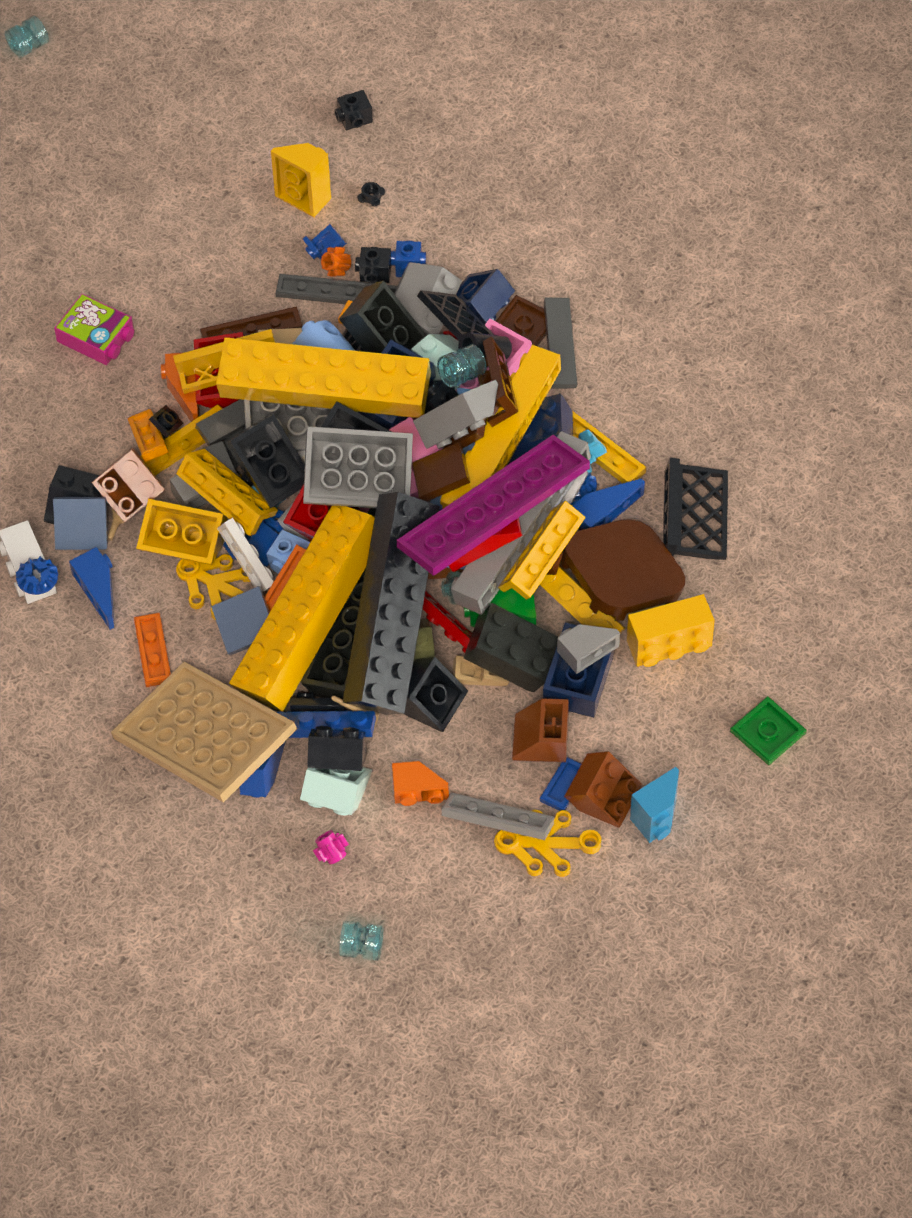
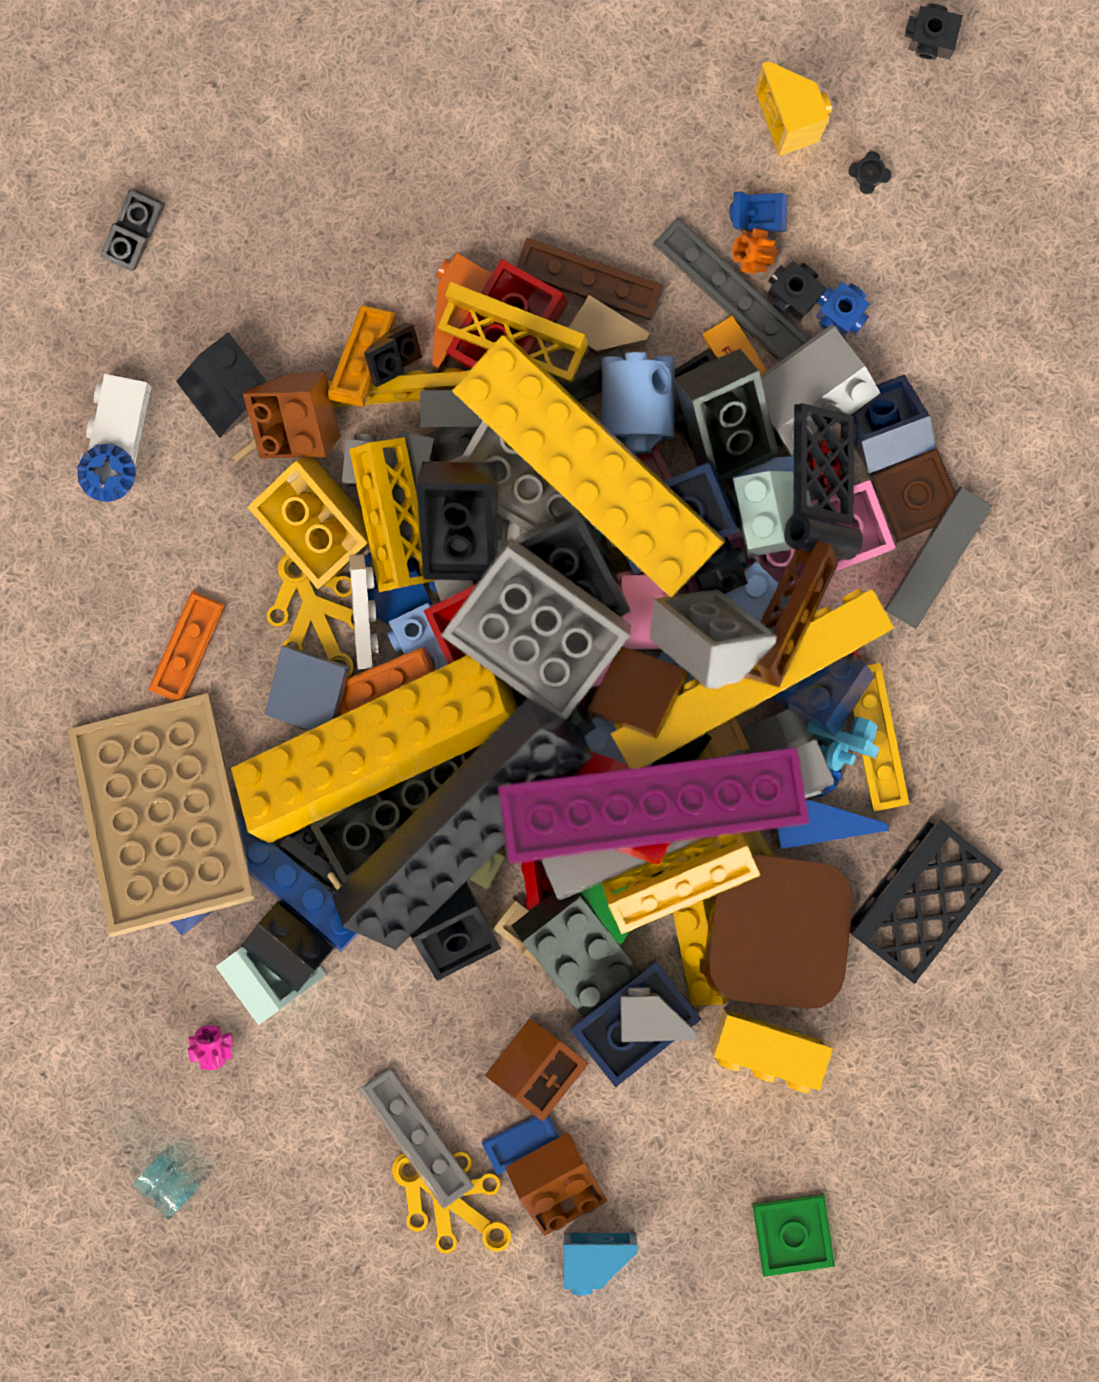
camera: 30 degrees right, 30 degrees up
(80, 523) = (206, 426): sand blue tile -> none
(94, 329) = (402, 149): brick -> none
(95, 579) = (177, 516): blue slope -> none
(417, 783) = (357, 1032): orange slope -> none
(461, 366) = (771, 560): clear light blue wheel -> none

